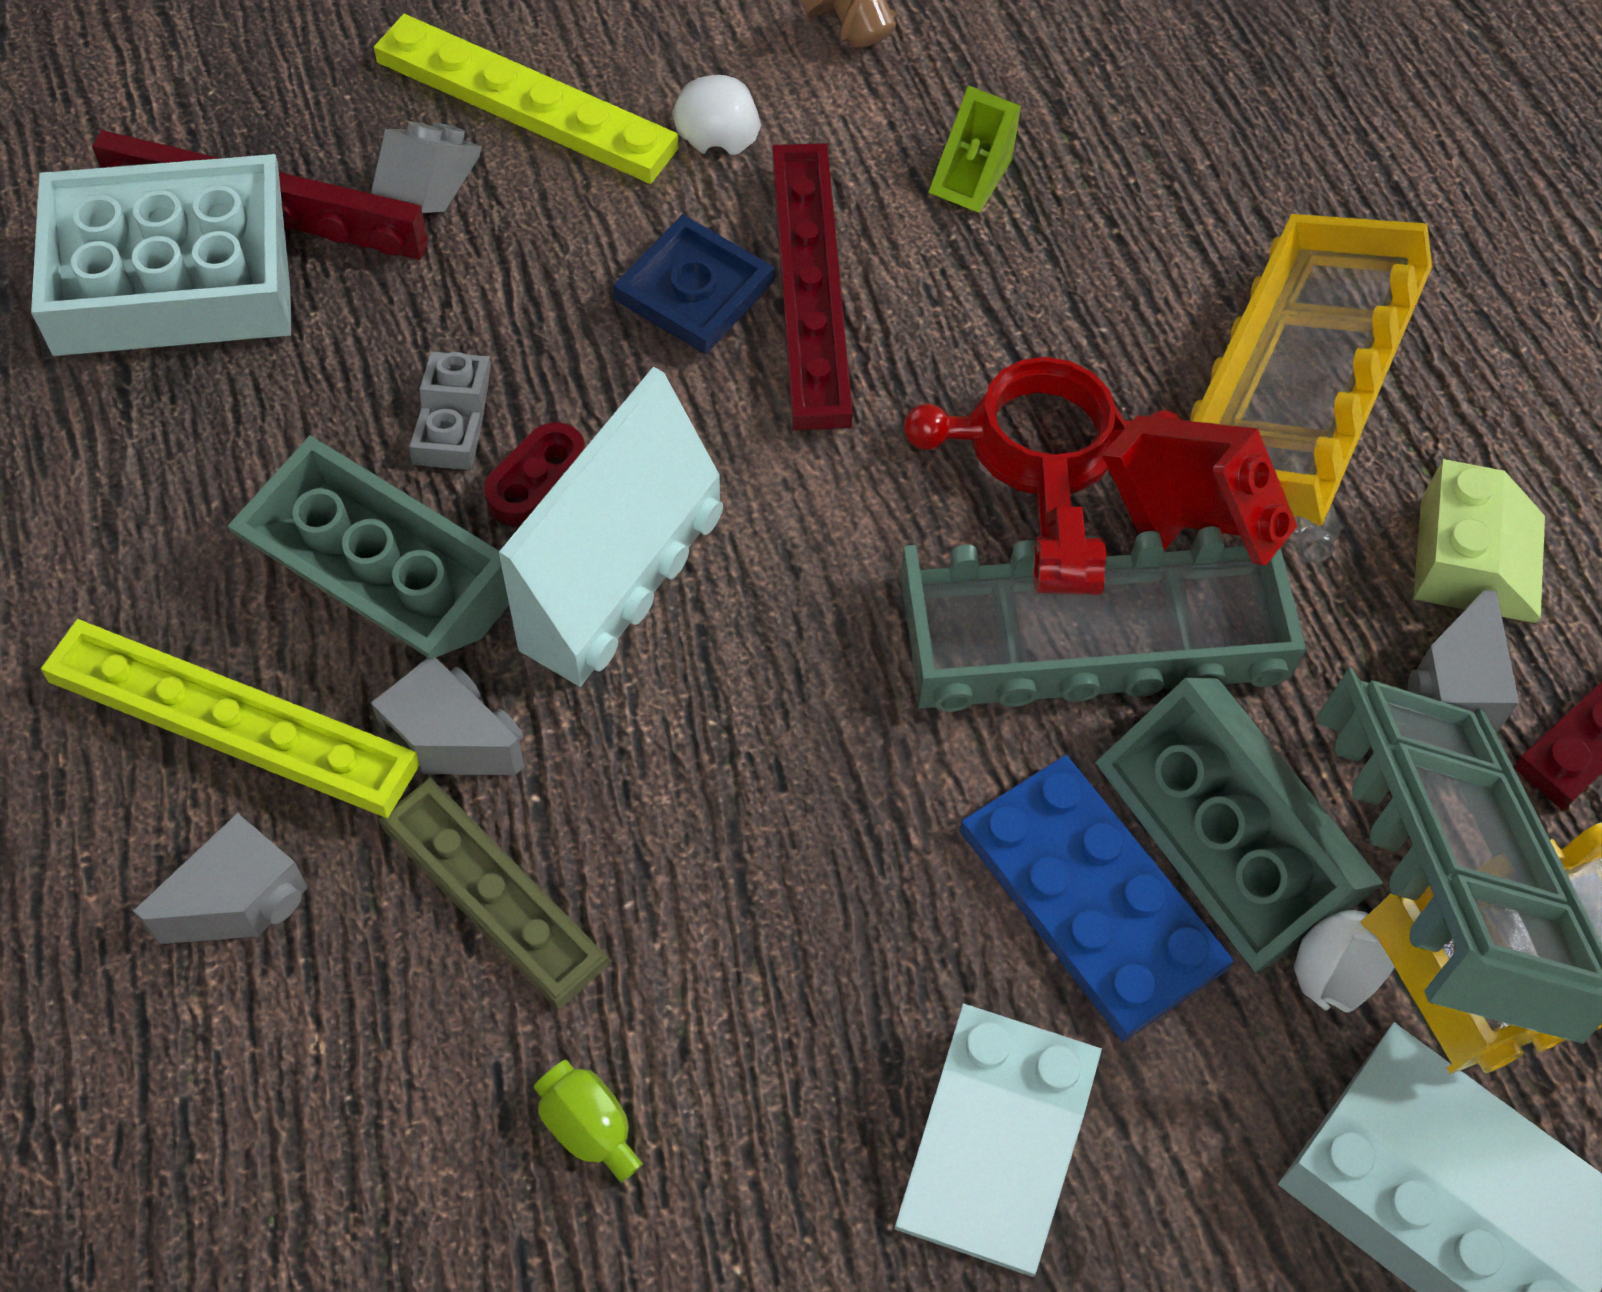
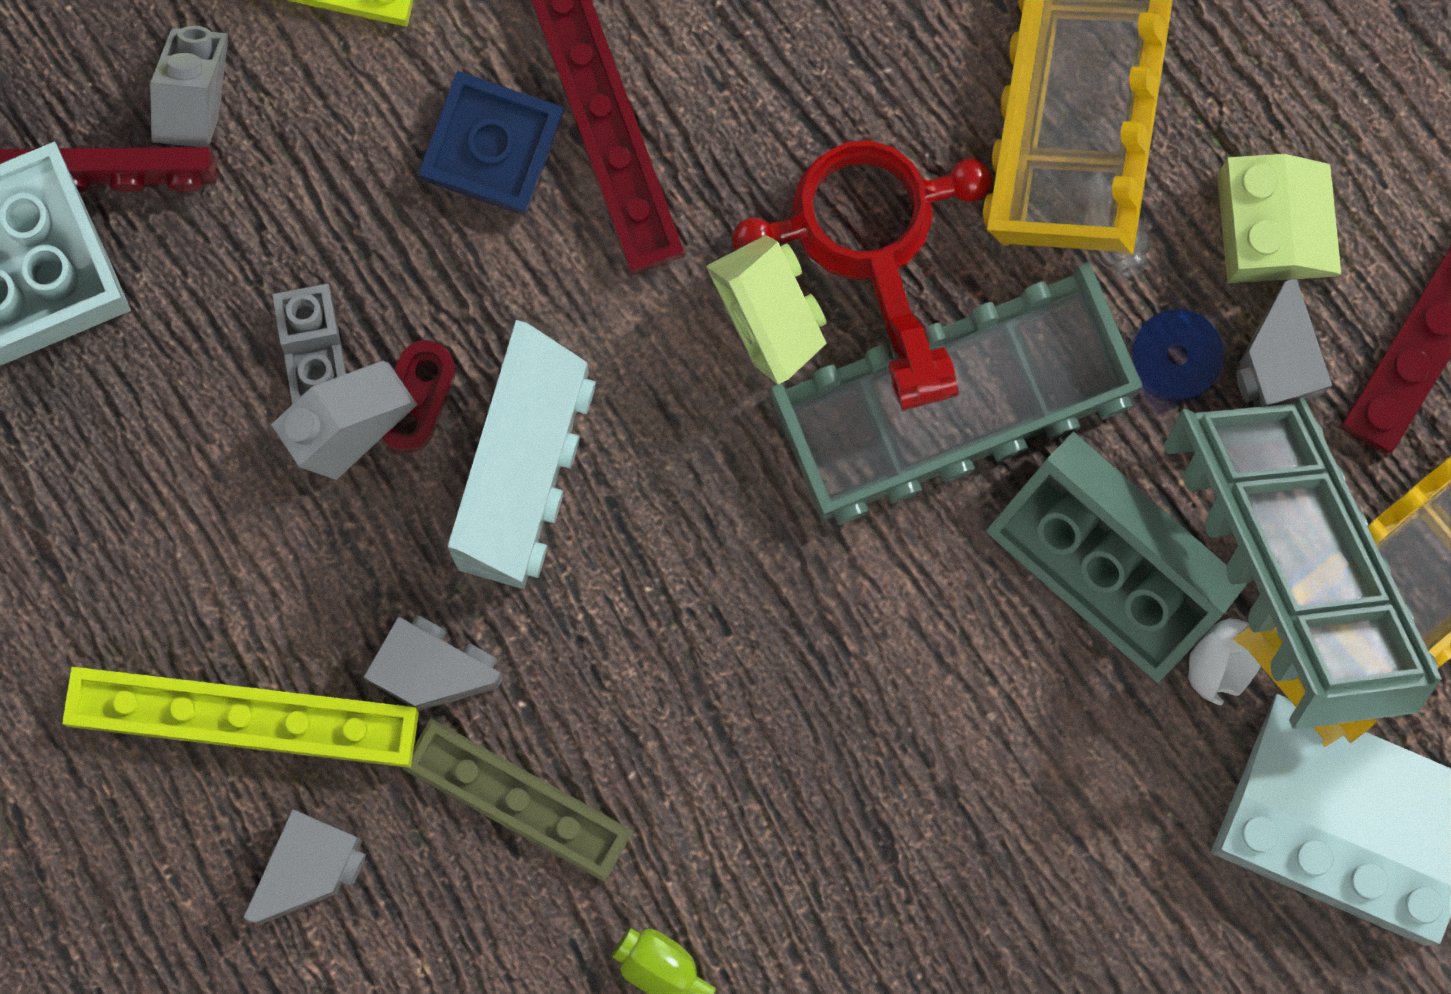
camera: 20 degrees left, 20 degrees up
(376, 550) = (309, 533): sand green slope -> none
(452, 459) = (343, 418): none -> light grey slope
(923, 470) = (769, 307): none -> yellowish green slope
(998, 1140) = (986, 889): light aqua slope -> none
(1095, 897) = (1012, 655): blue plate -> none
(1201, 478) = (988, 247): red panel -> none
(1349, 623) = (1198, 341): none -> clear blue piece

